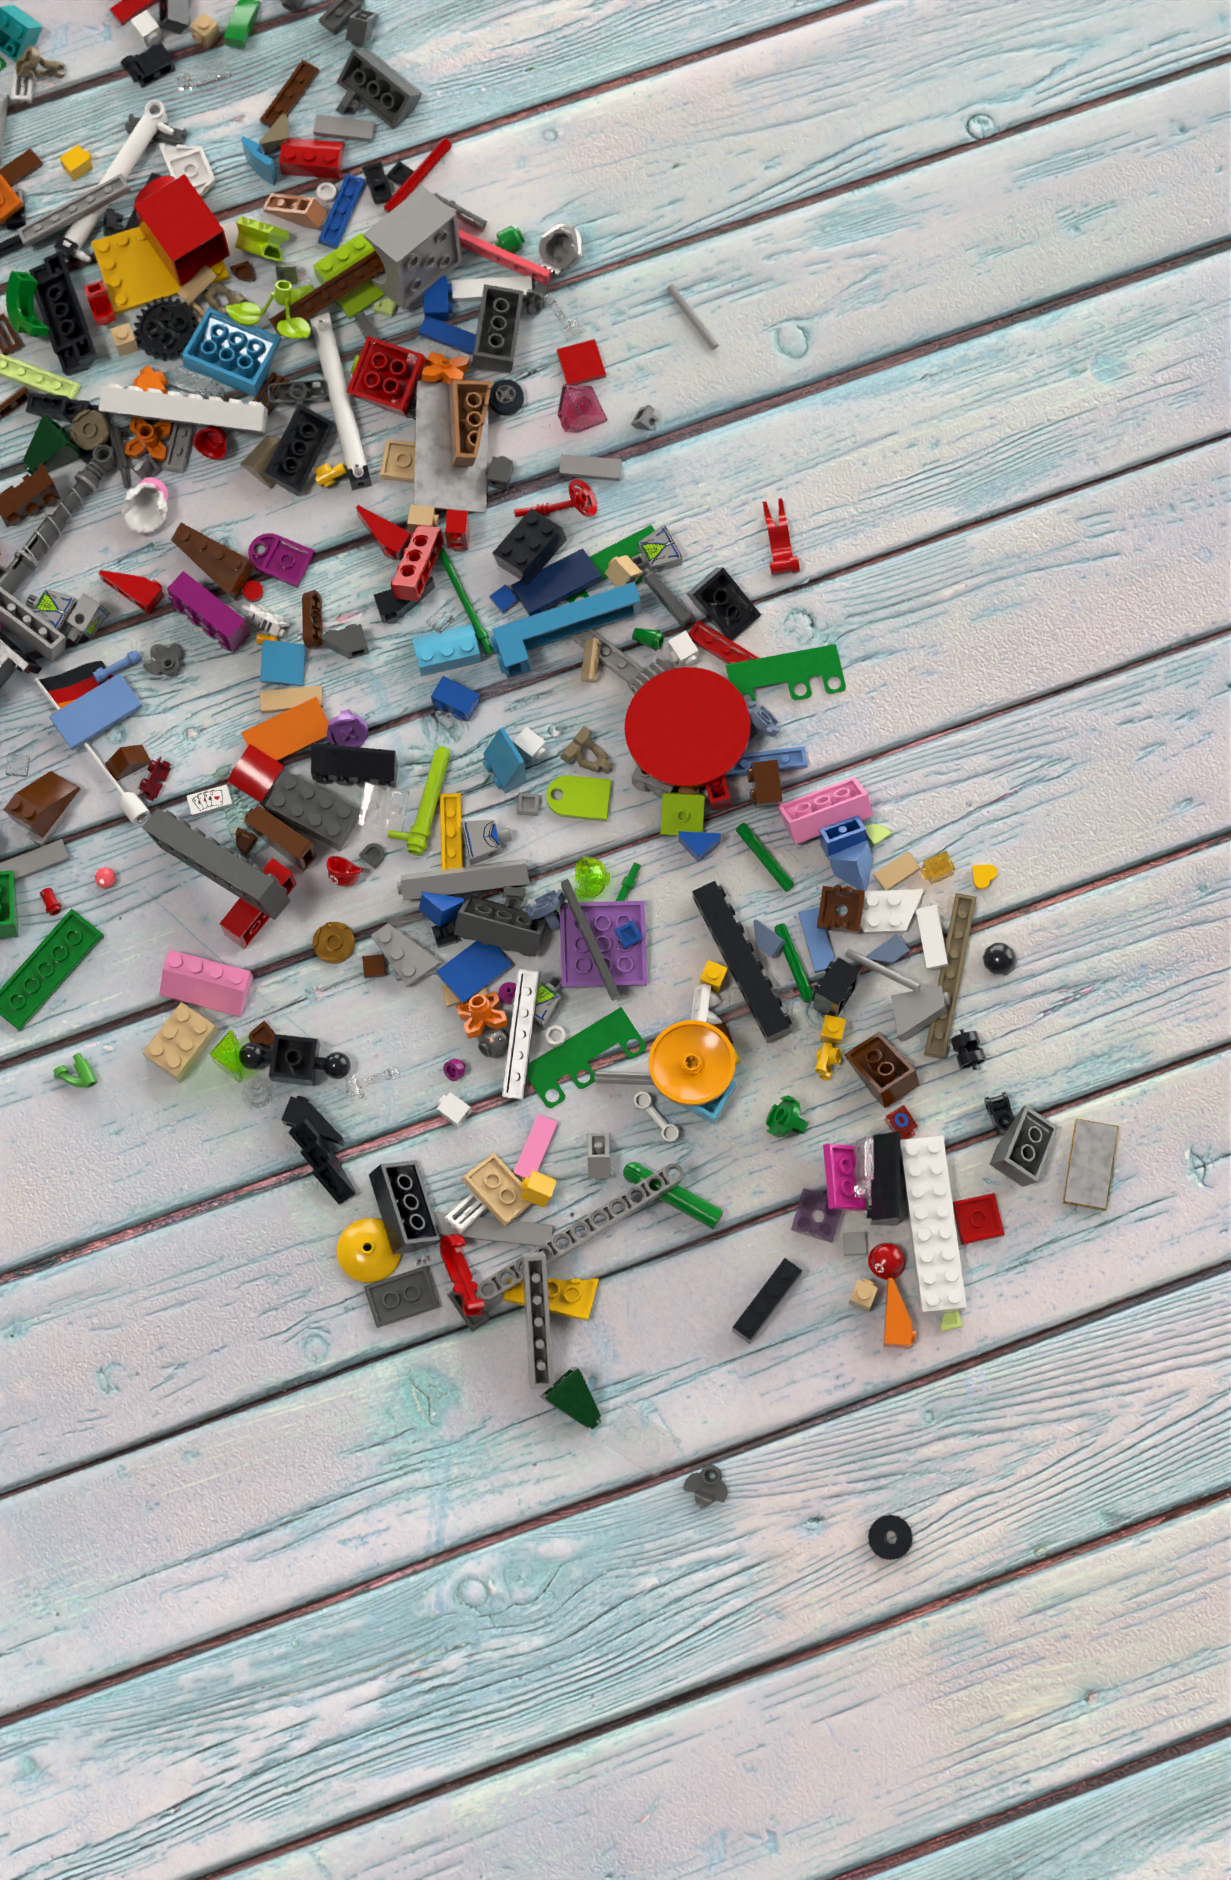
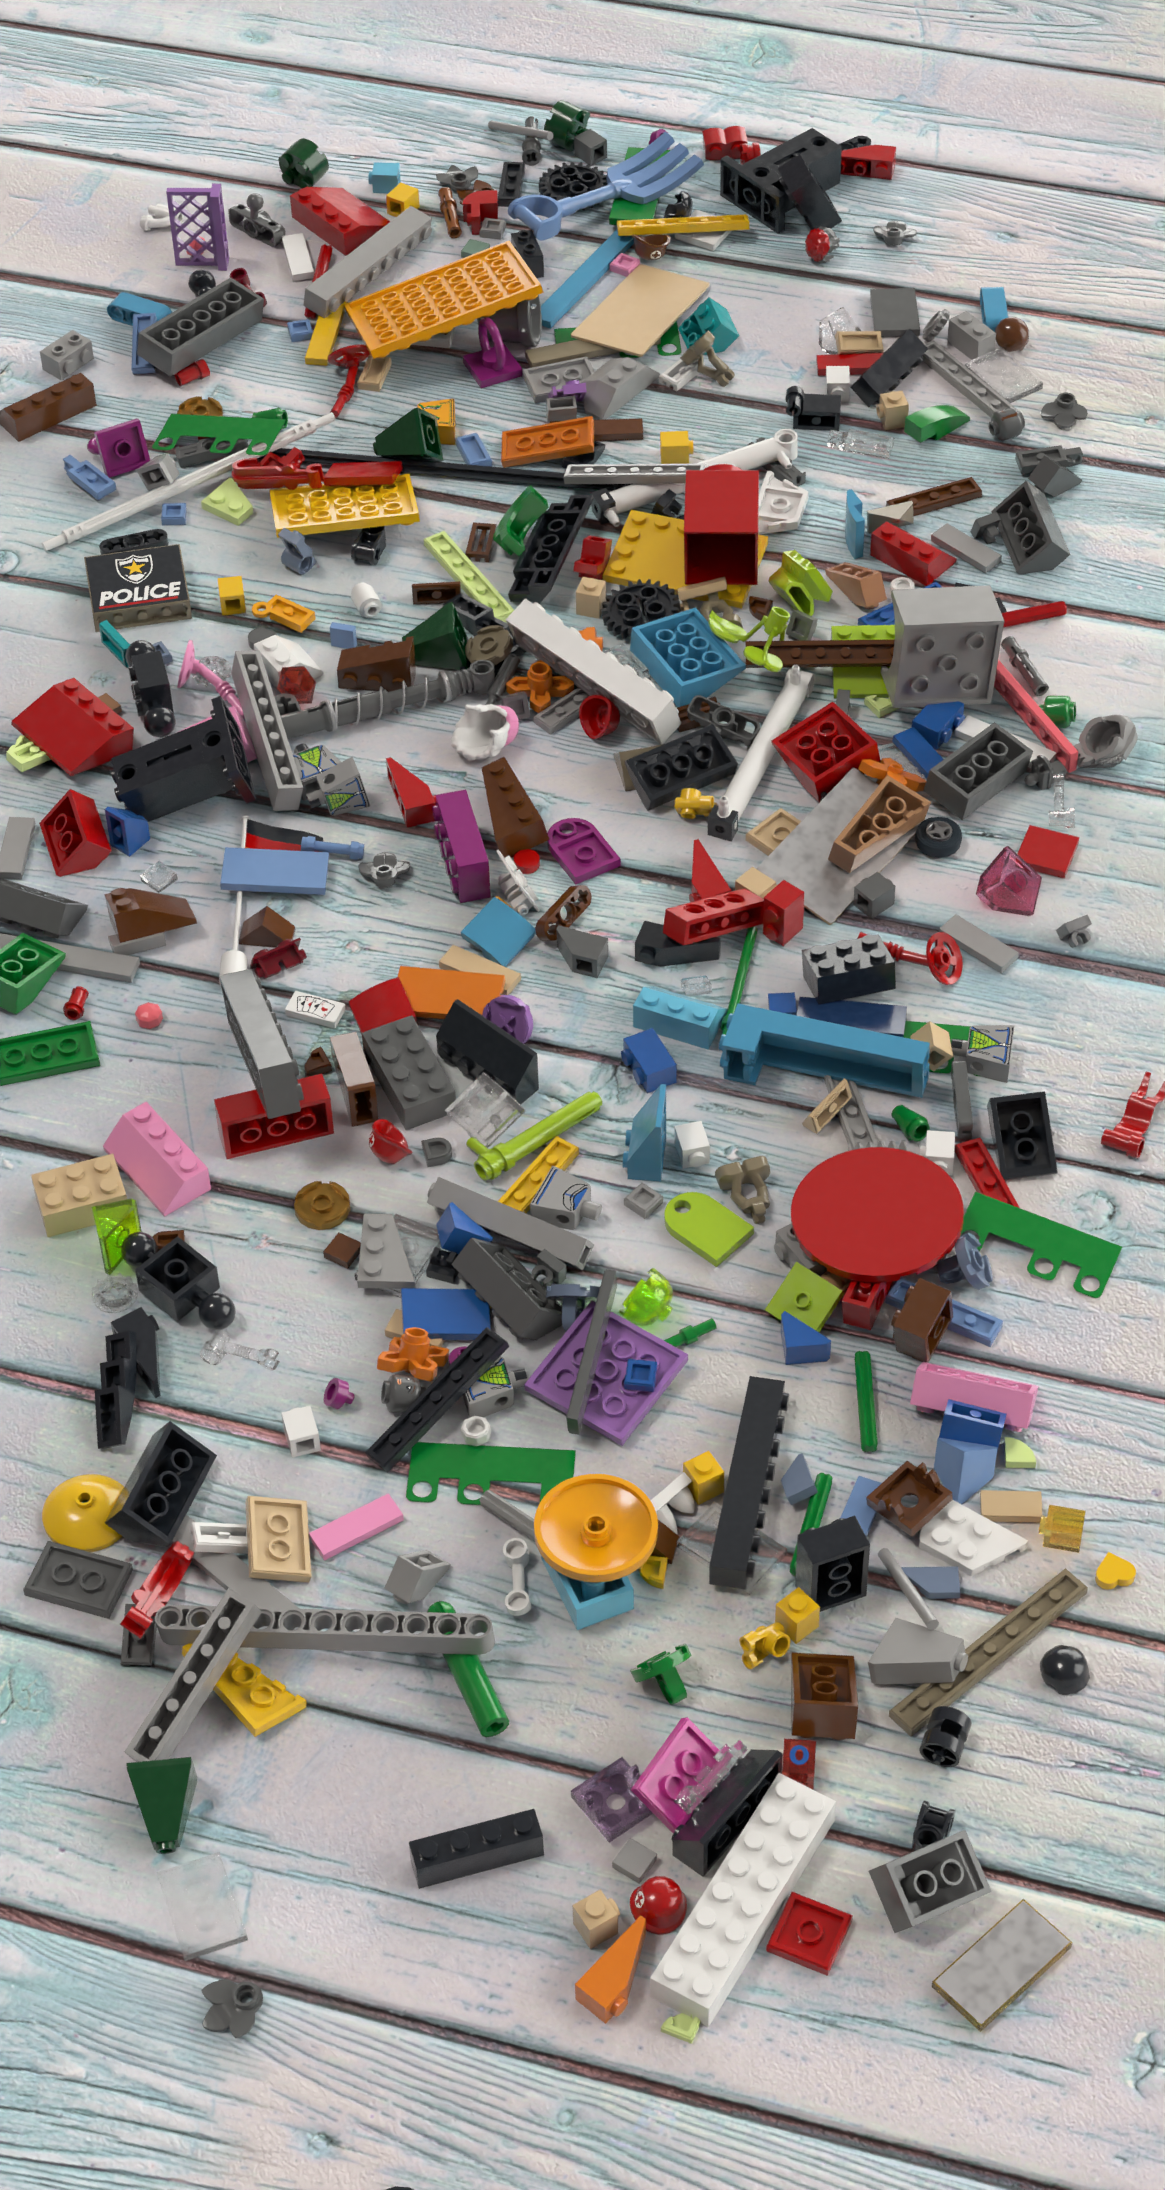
camera: 35 degrees right, 25 degrees down
(537, 1188) = (319, 1561): yellow brick -> none
(932, 937) = (997, 1595): white tile -> none

